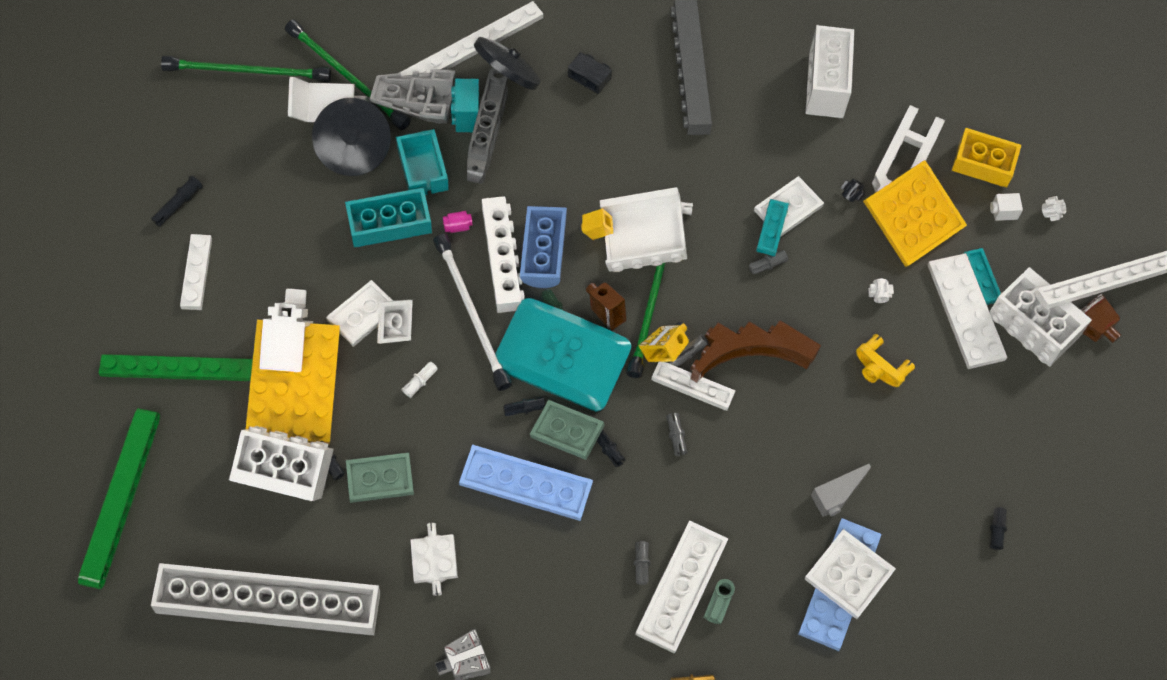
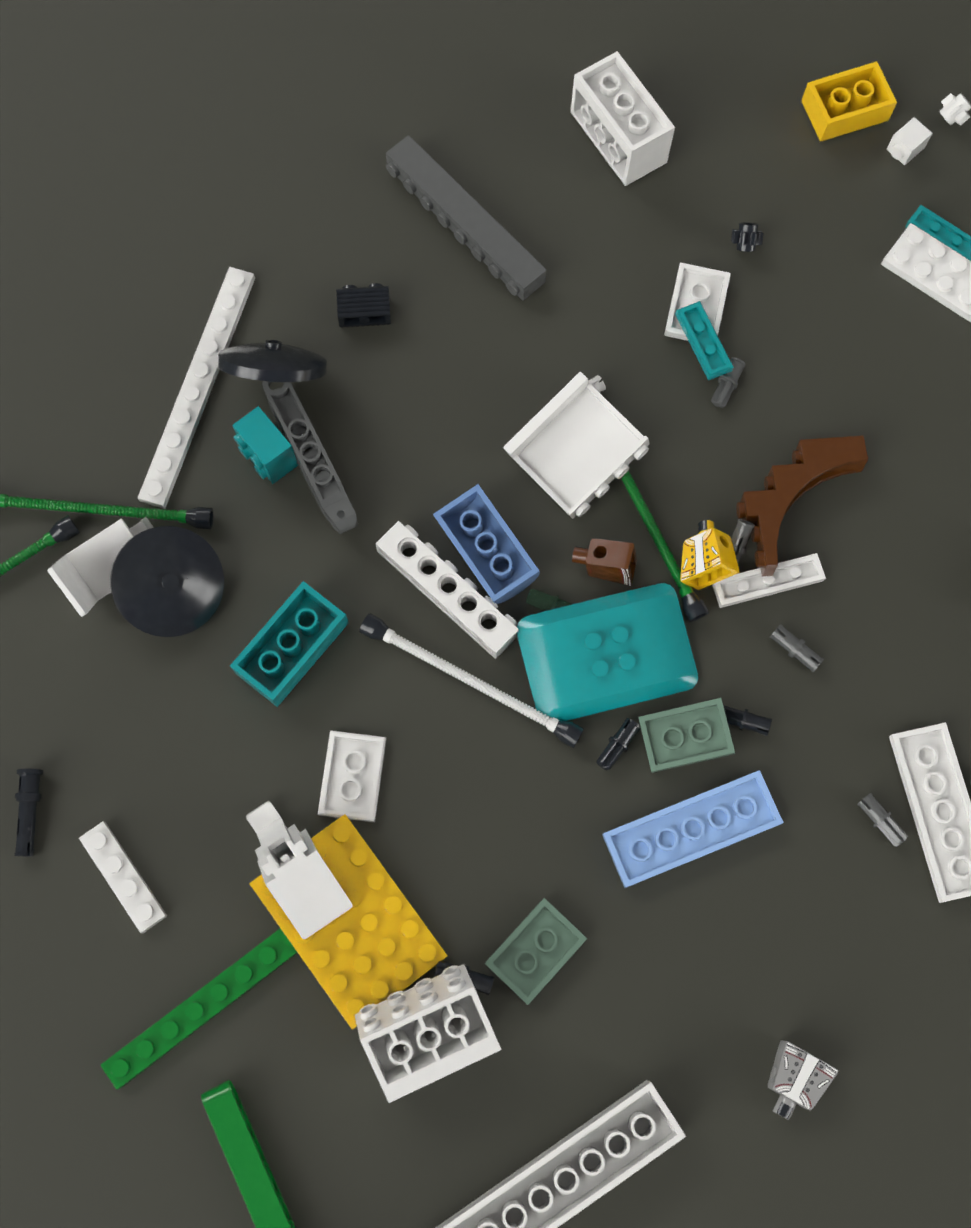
camera: 35 degrees left, 10 degrees up
(394, 321) = (404, 763): white slope -> none
(417, 95) = (197, 474): light grey wedge -> none
(419, 379) = (482, 803): white axle -> none
(422, 162) = (272, 550): teal piece -> none
(434, 559) = (670, 993): white plate -> none
(457, 222) = (367, 589): dark pink brick -> none
(597, 224) = (521, 476): yellow brick -> none
(879, 368) = (930, 415): yellow connector -> none
(881, 290) = (866, 328): white gear -> none
(904, 134) = (783, 212): white piece -> none
(915, 213) = (832, 216): yellow plate -> none

